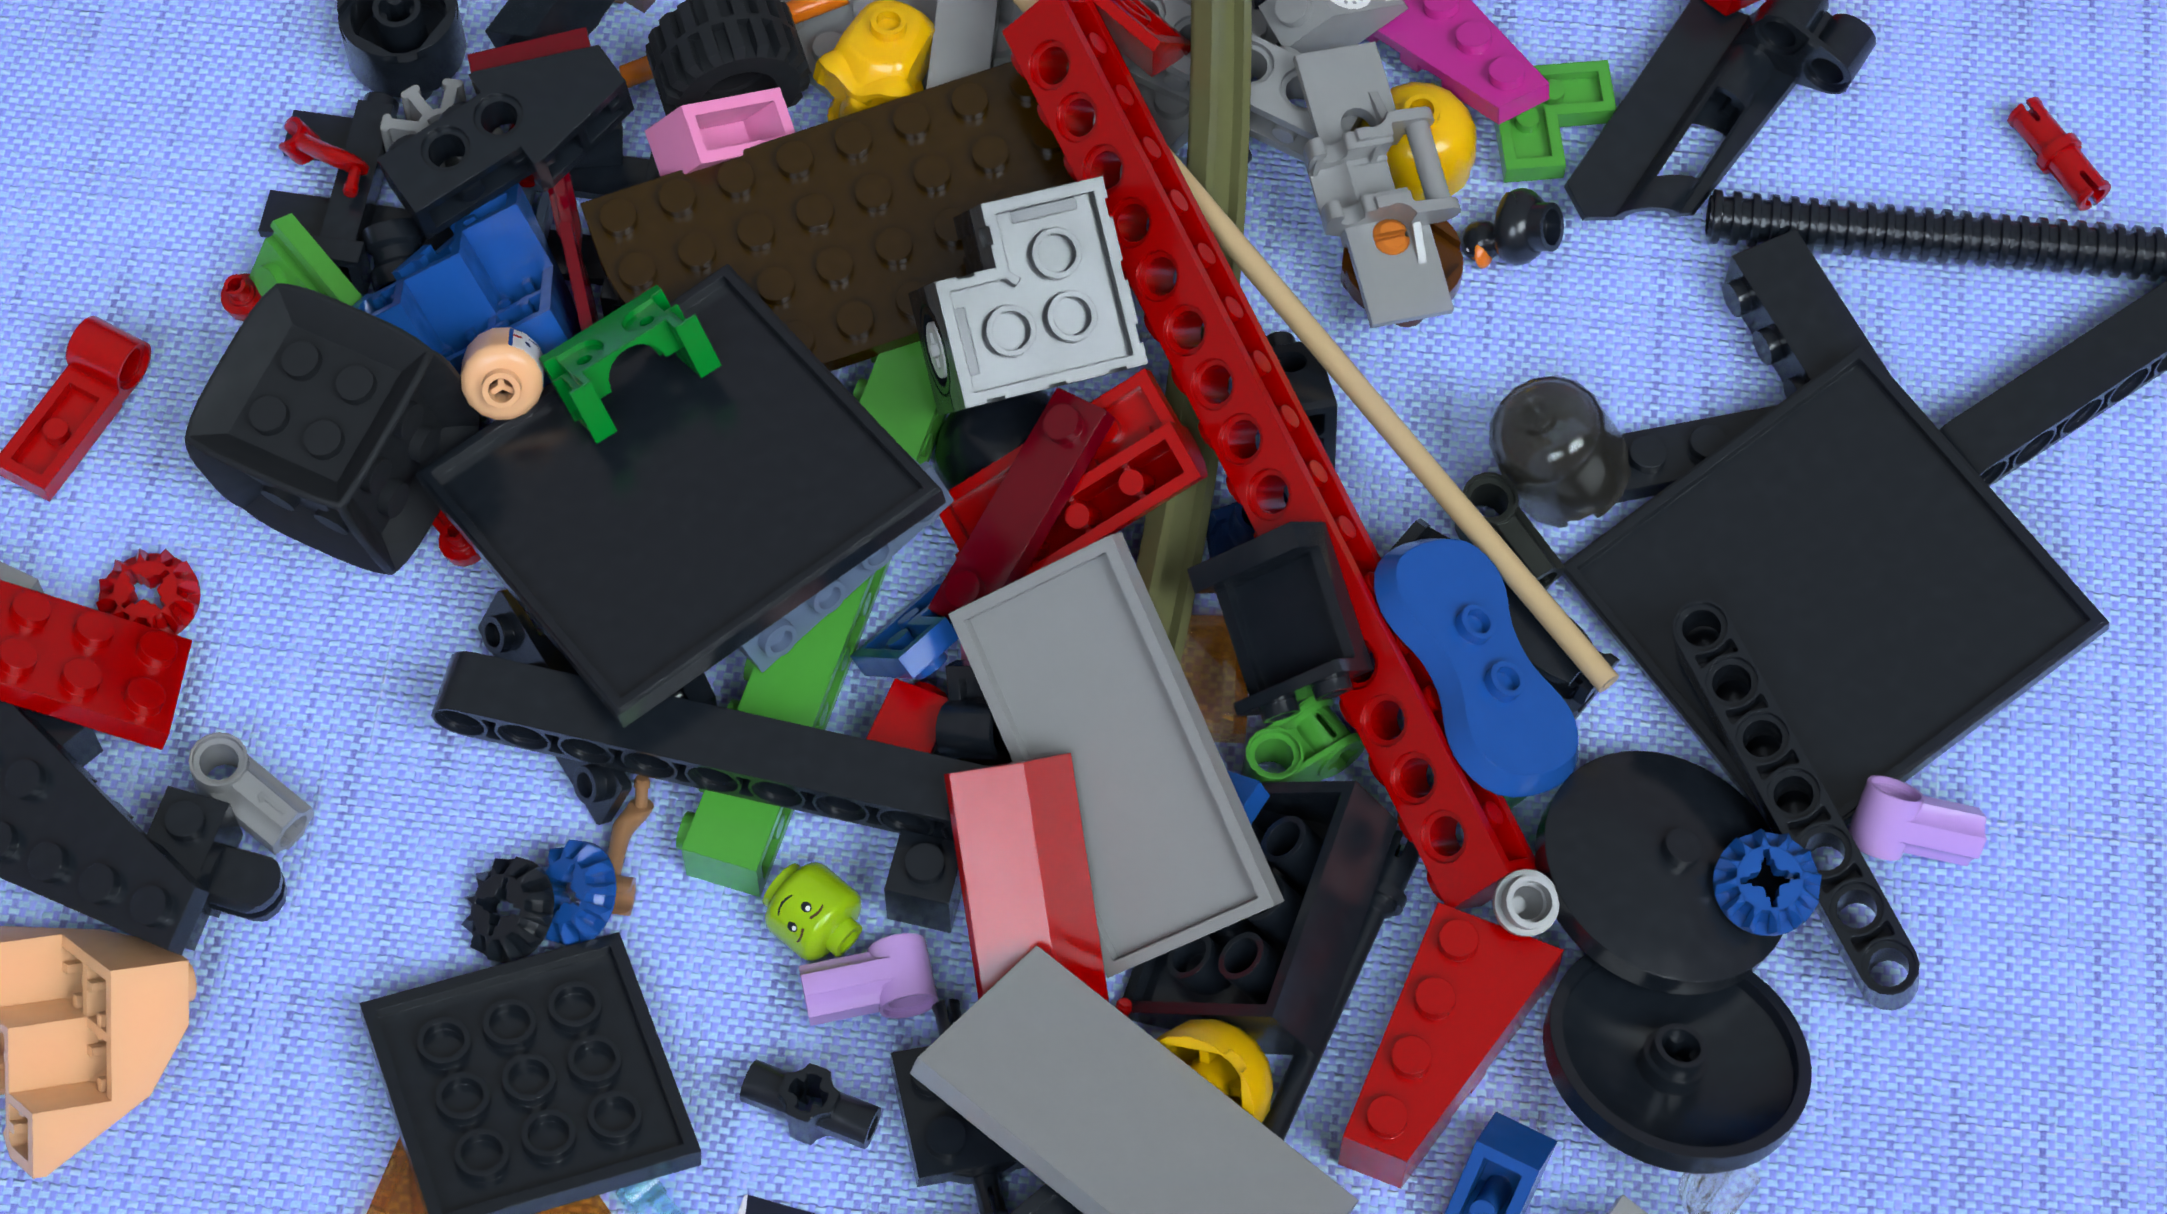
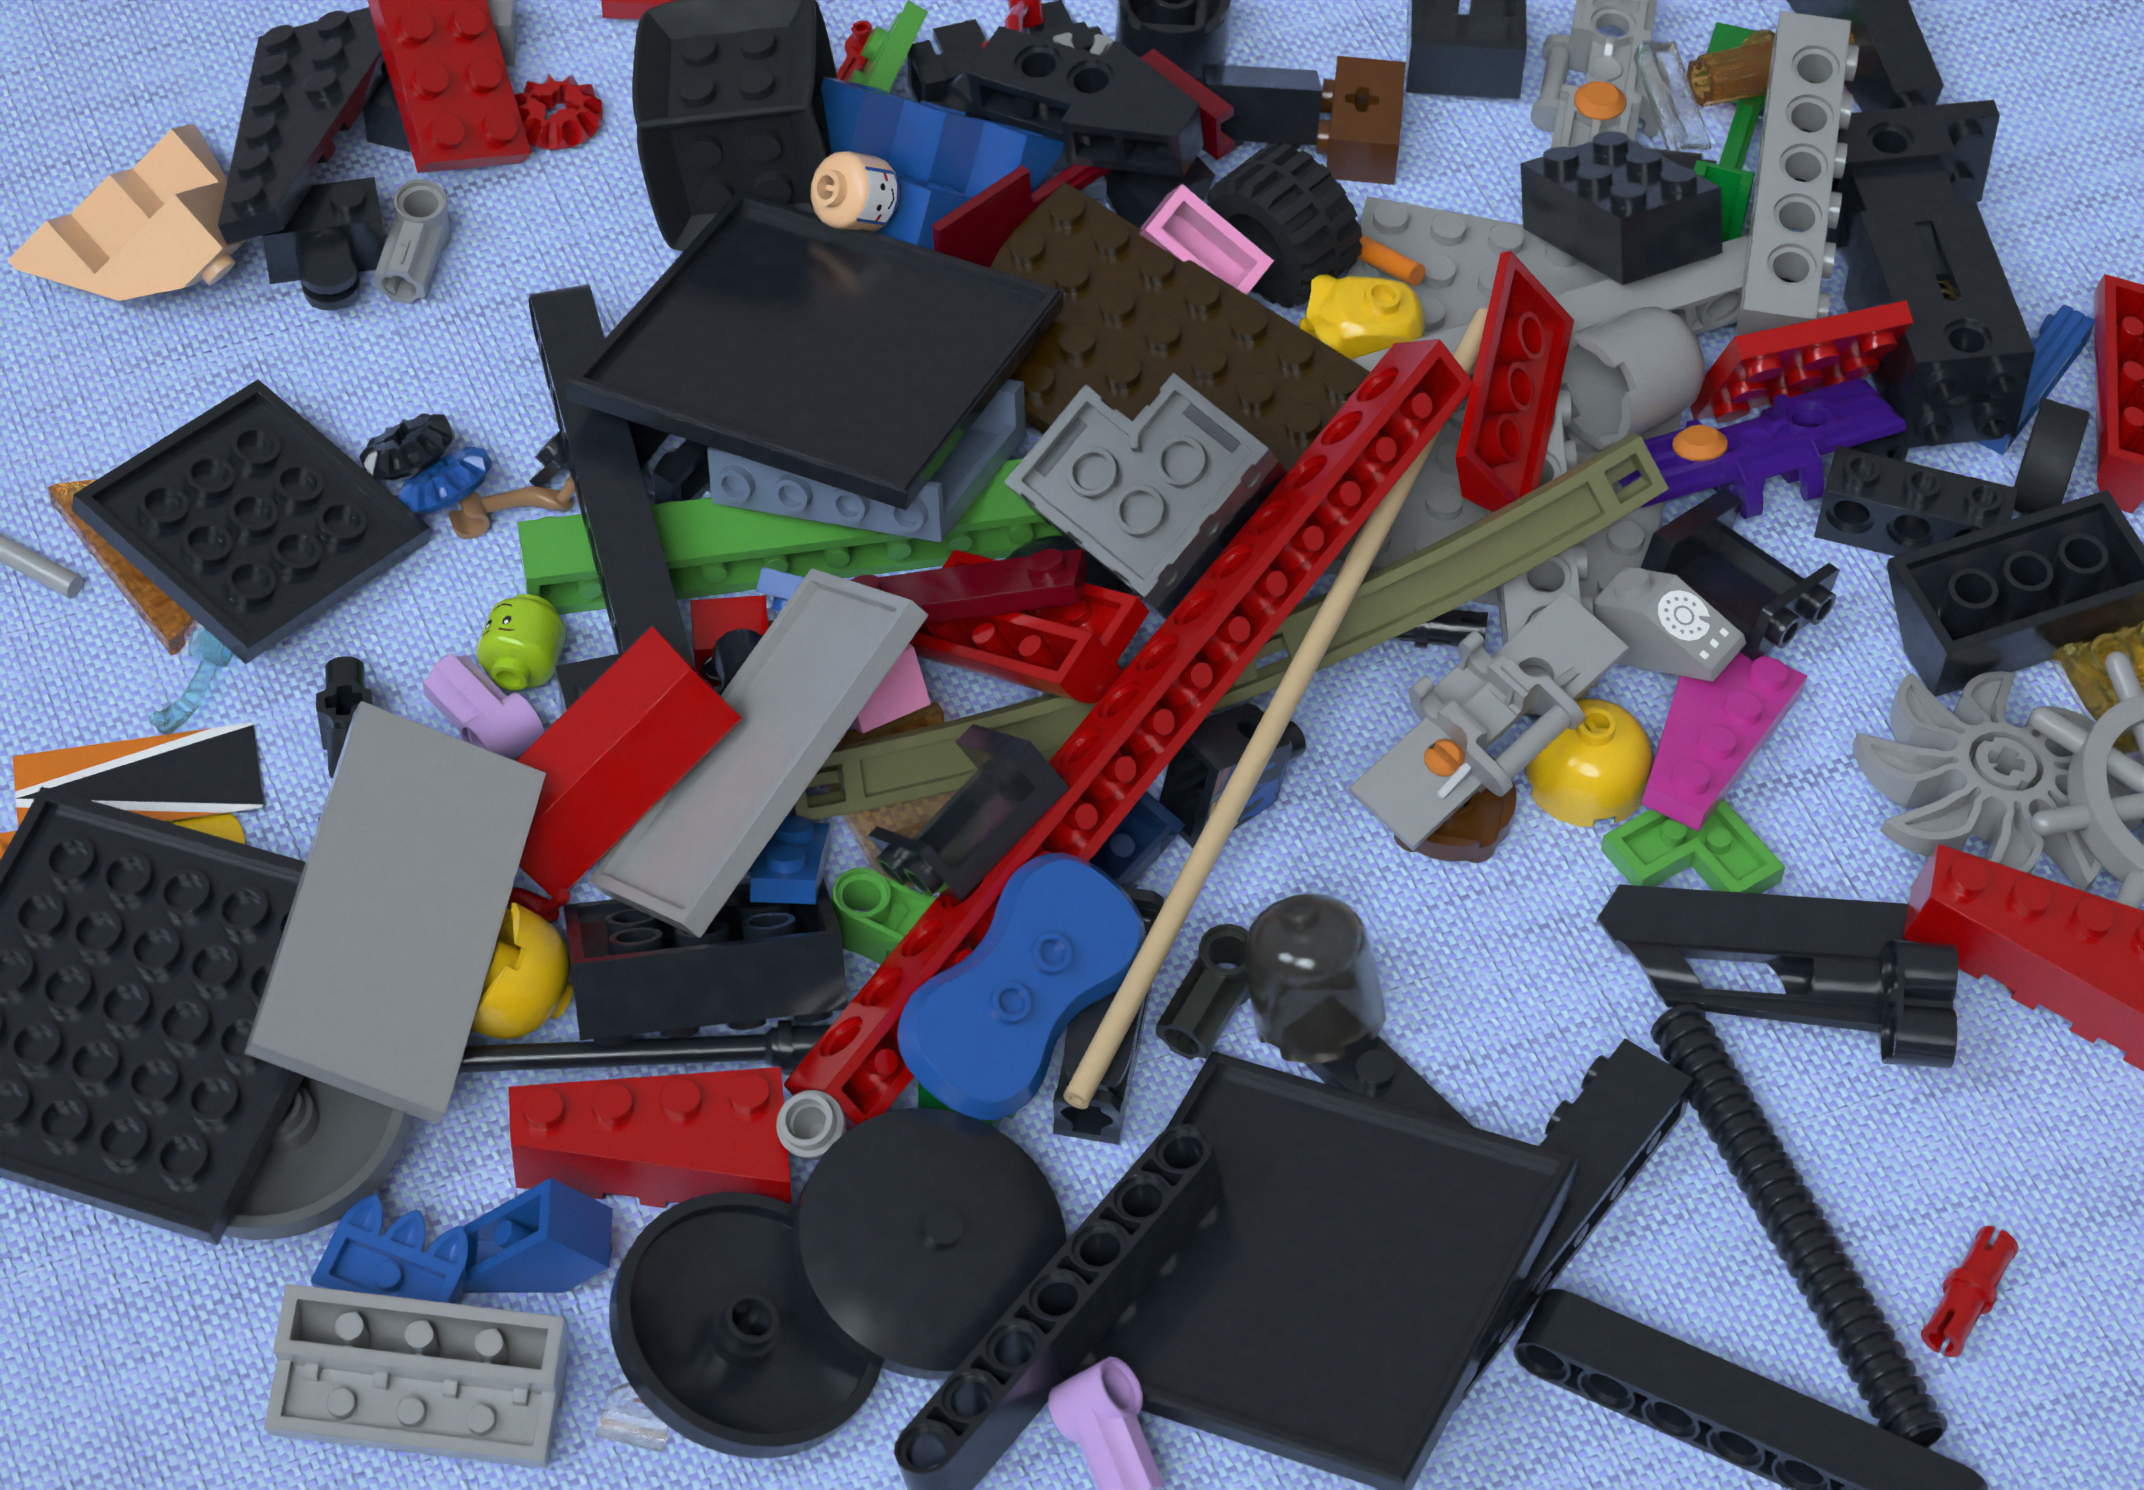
camera: 60 degrees right, 10 degrees down
(583, 363) = (951, 254): green piece -> none
(1520, 230) = (1547, 871): black animal -> none
(1748, 904) = (940, 1338): blue gear -> none

